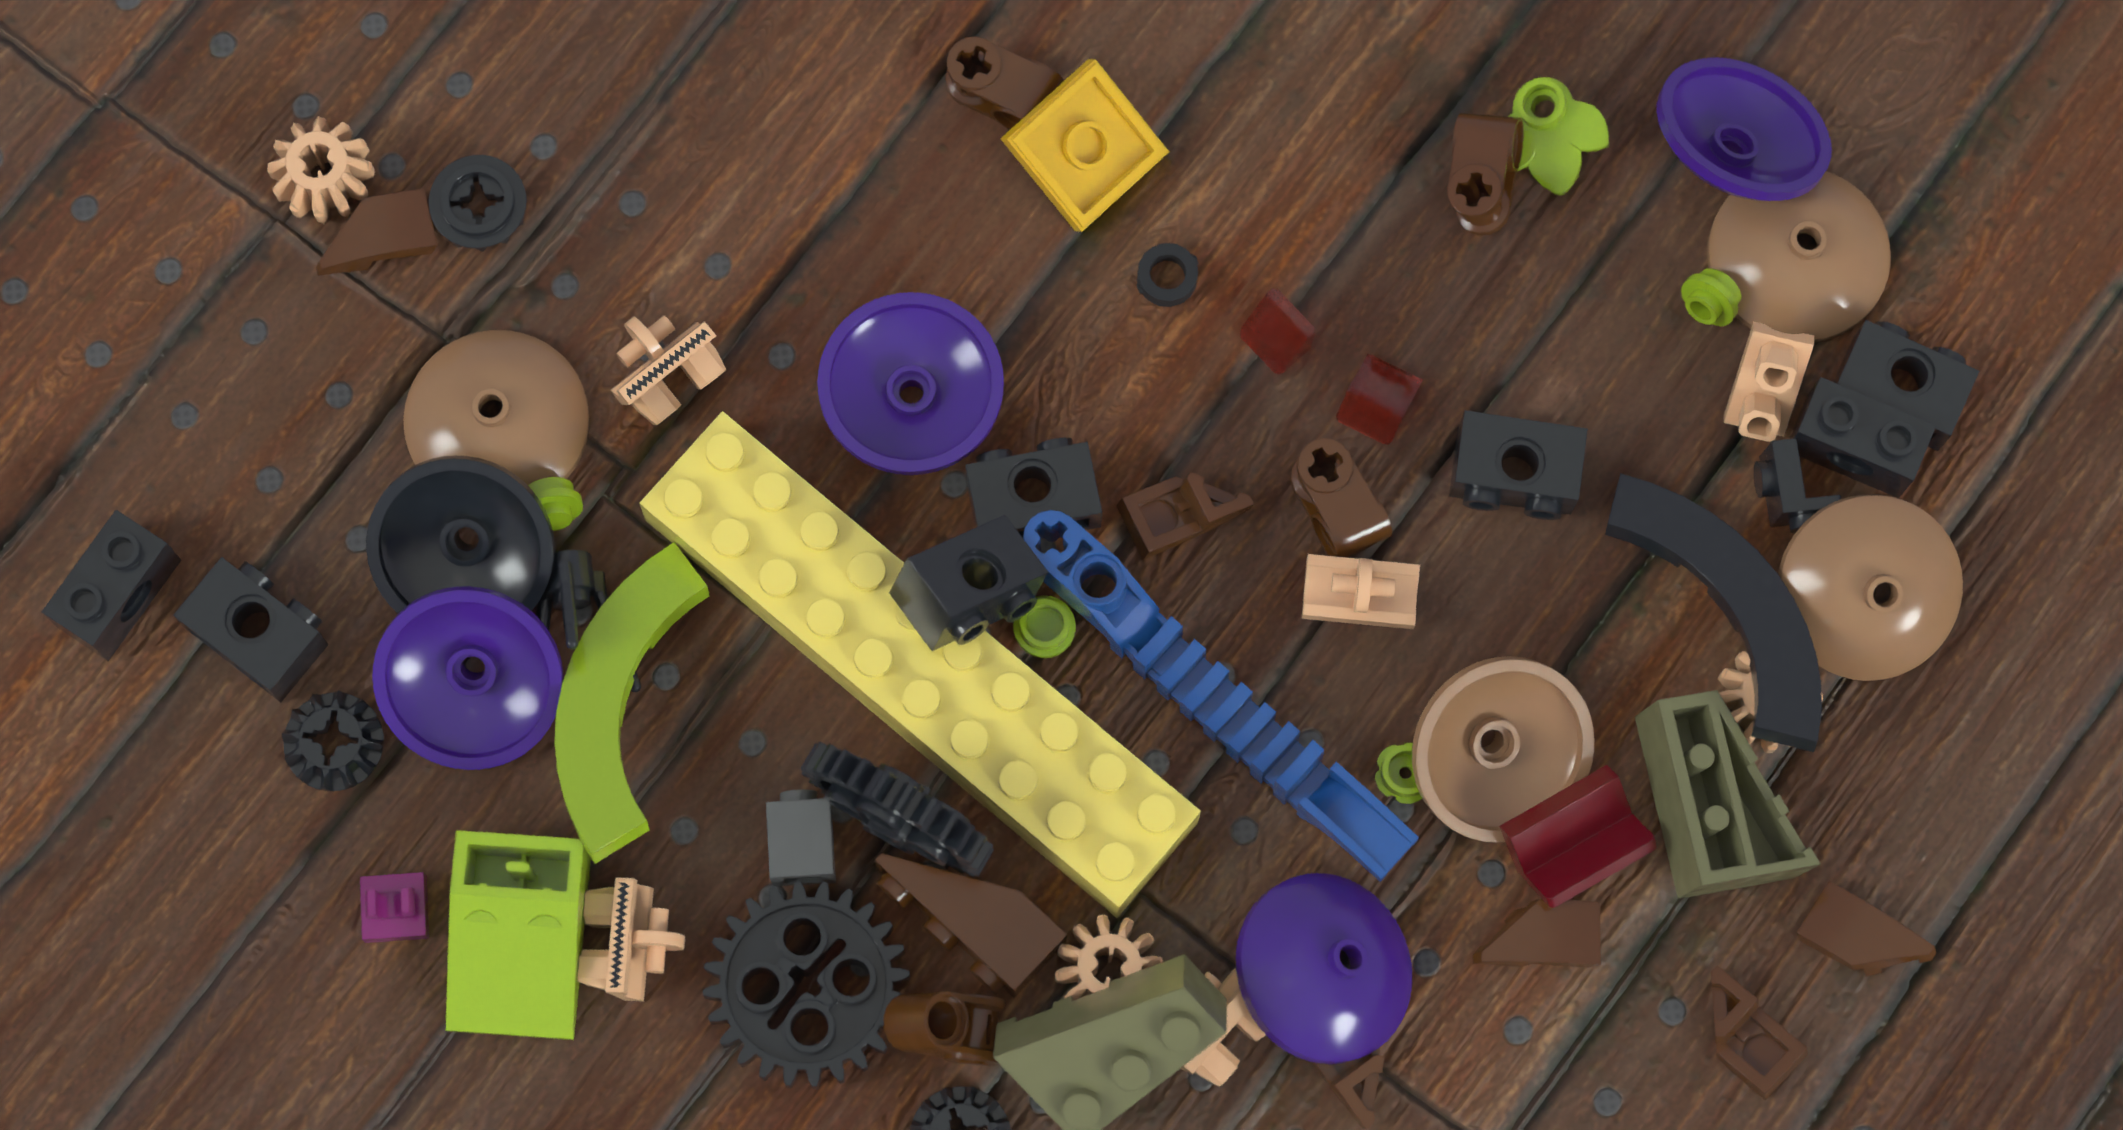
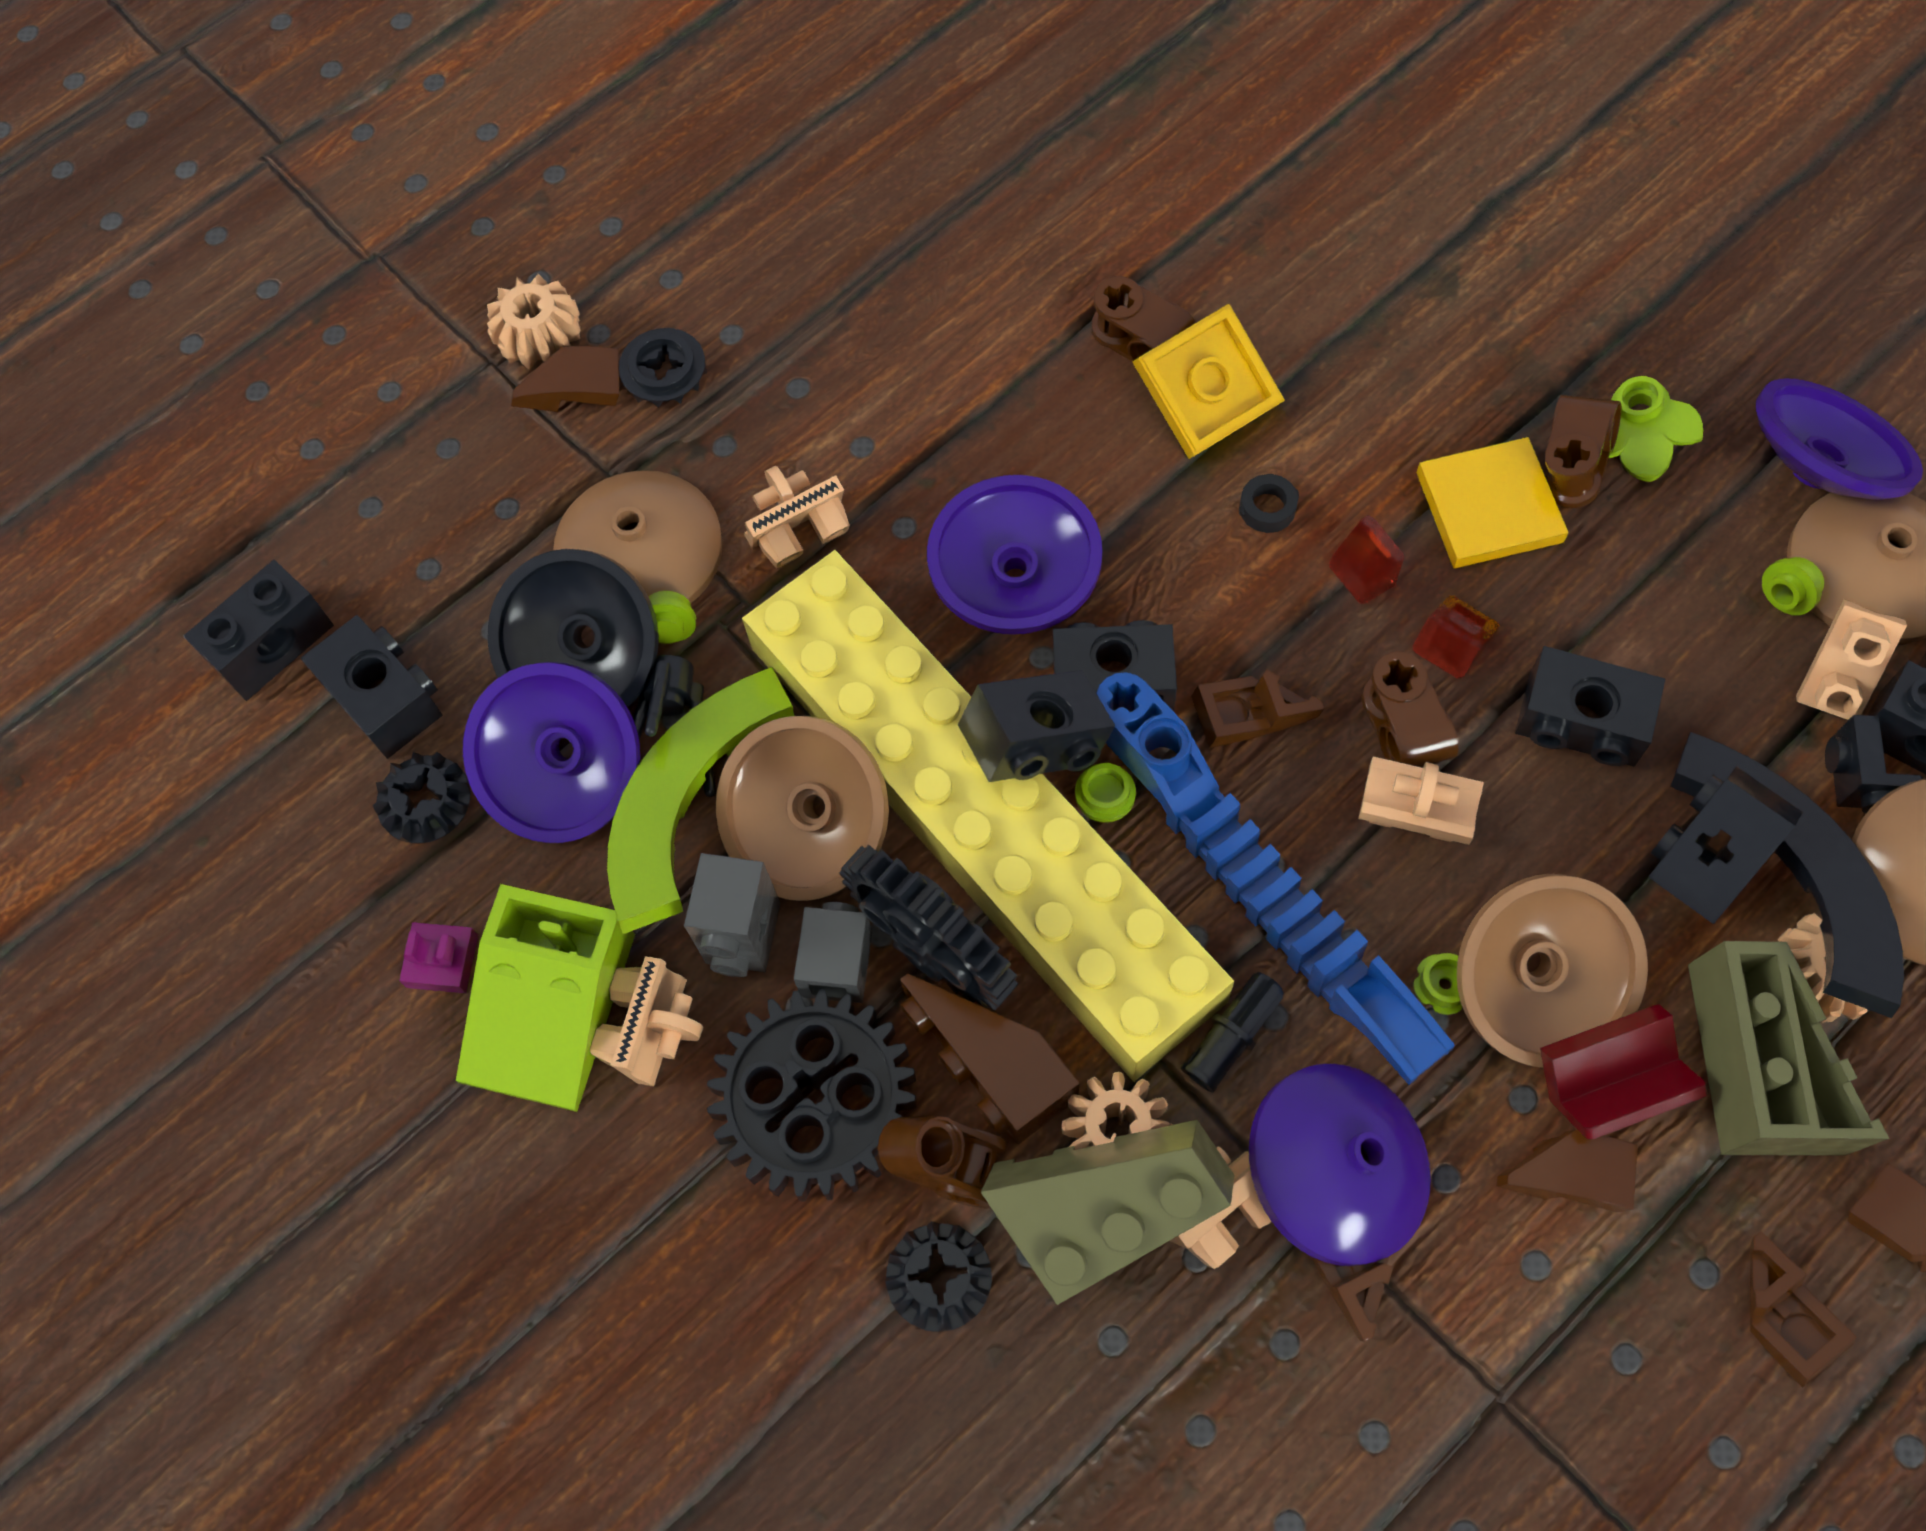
camera: 20 degrees right, 10 degrees down
(695, 822) = (732, 914): none -> dark grey brick
(711, 716) = (770, 795): none -> medium nougat dish
(1207, 855) = (1233, 1032): none -> black axle
(1399, 241) = (1491, 502): none -> yellow tile
(1674, 569) = (1713, 879): none -> black brick

